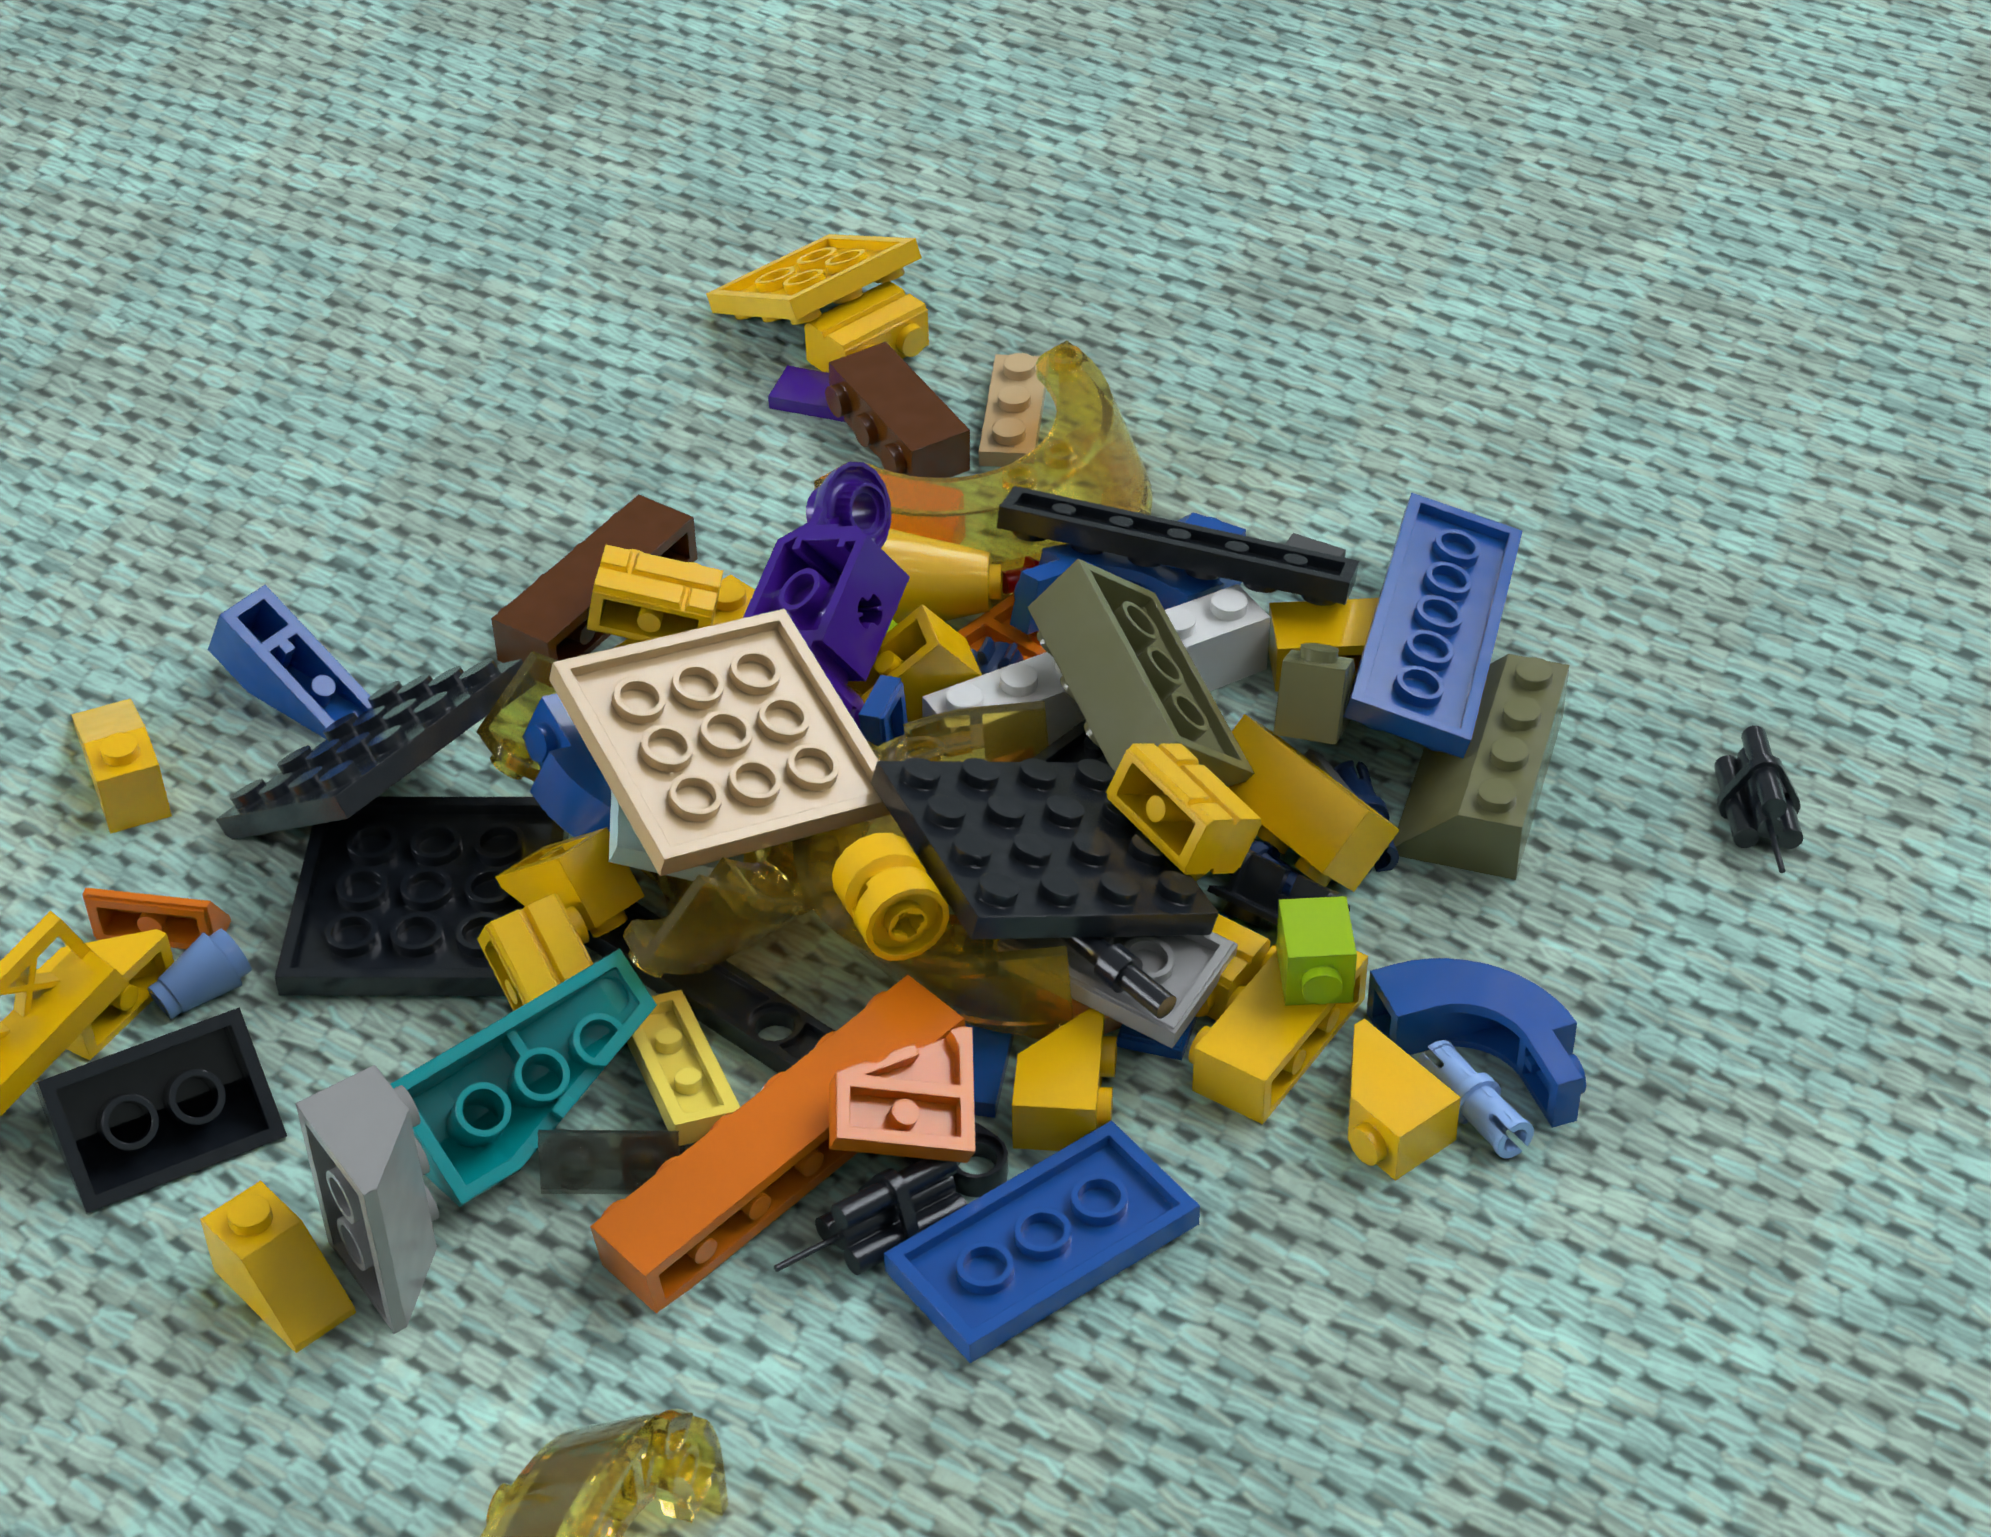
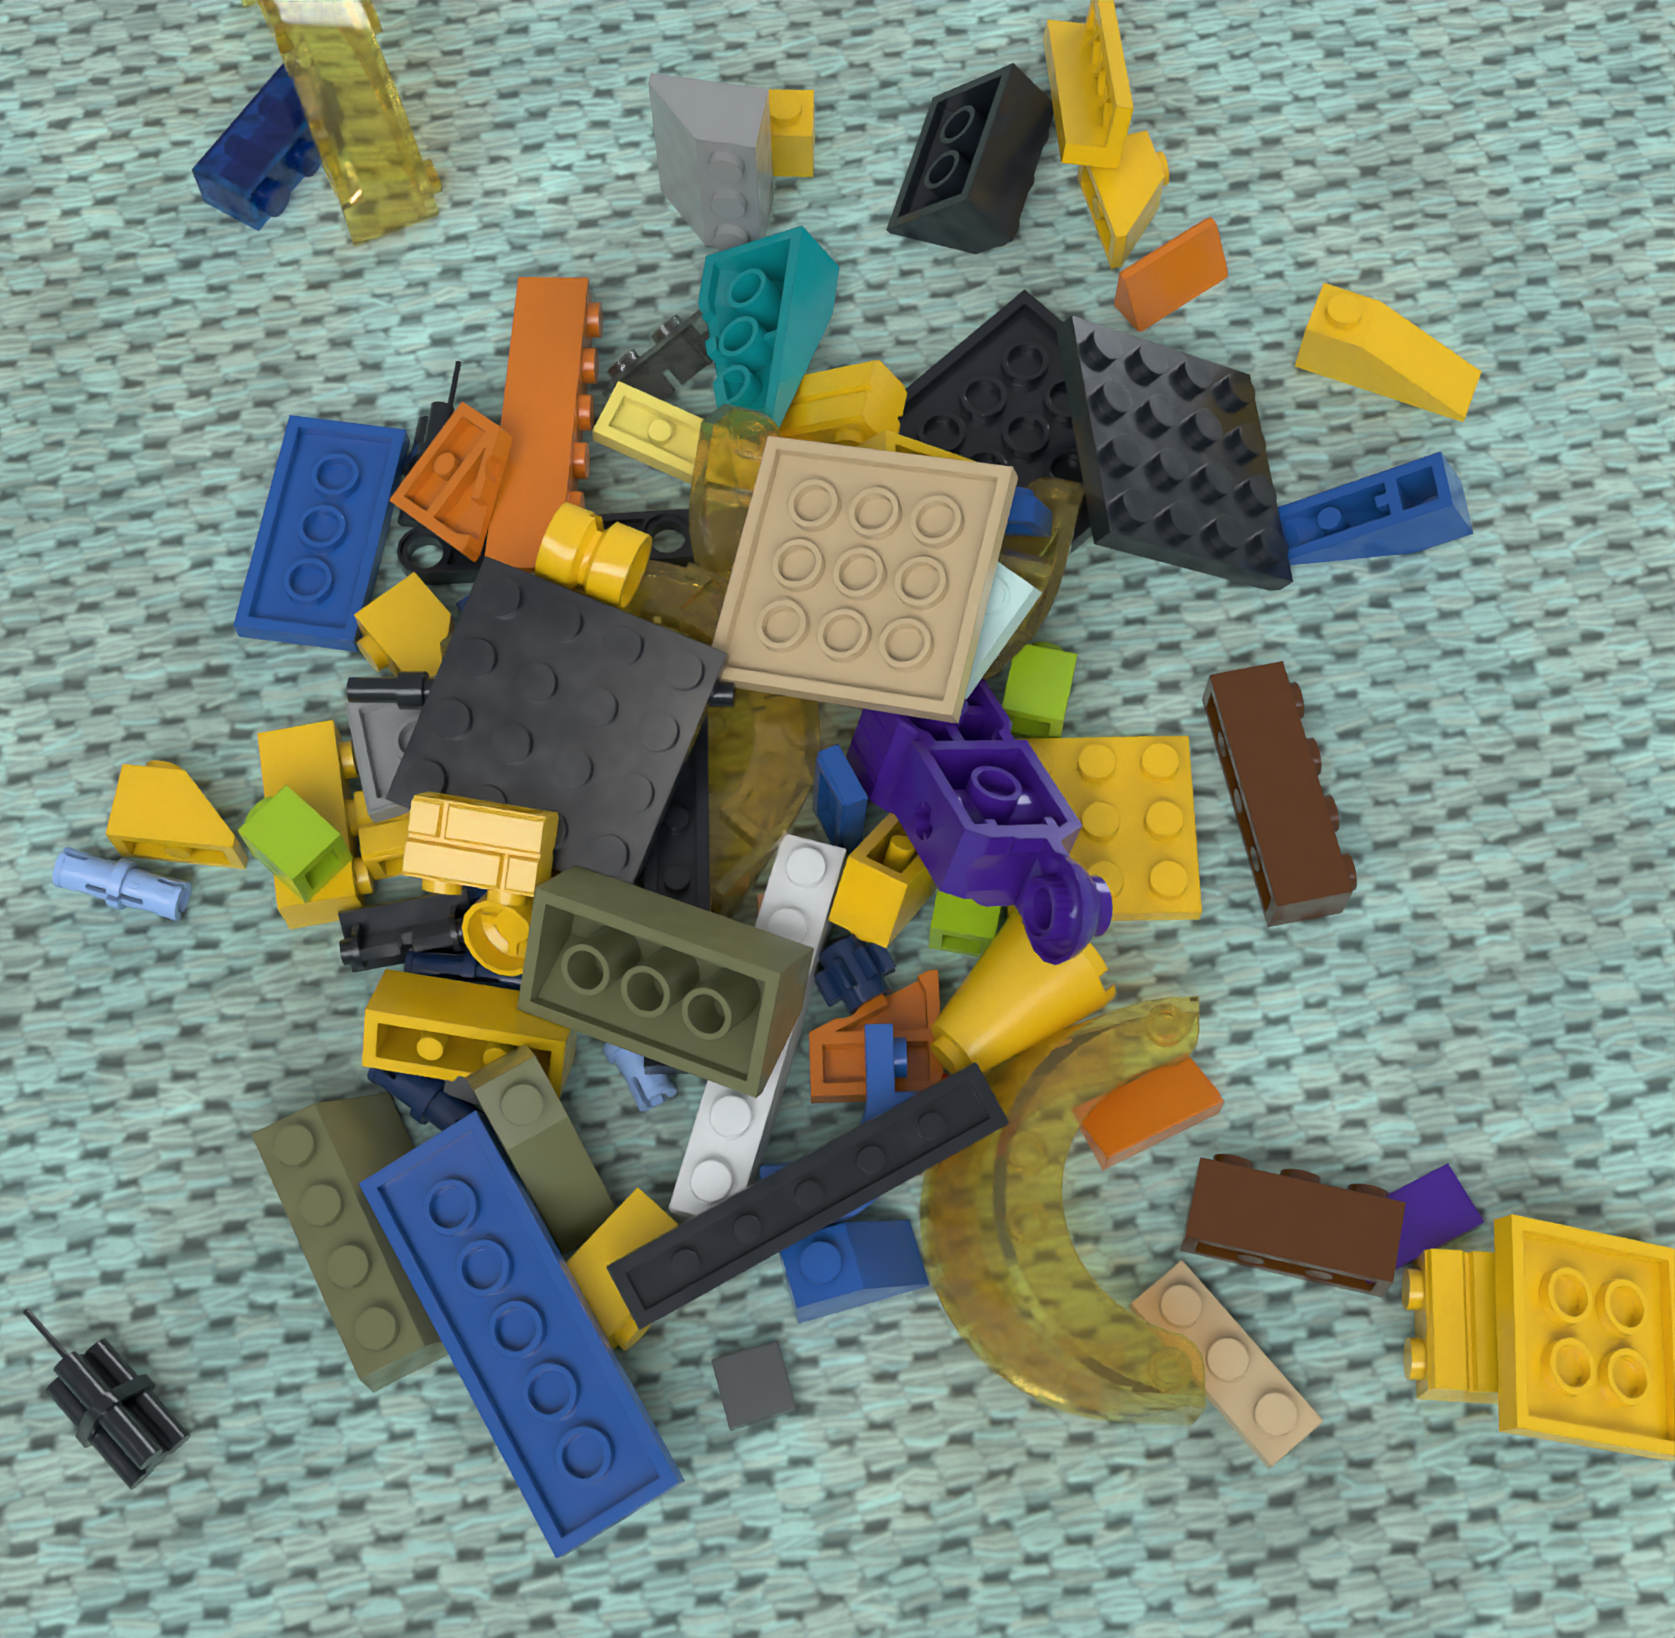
camera: 135 degrees right, 25 degrees up
(200, 974) = (1082, 265): medium blue cone -> none
(651, 595) = (1173, 770): yellow brick -> none
(1483, 1011) = (169, 965): blue arch -> none

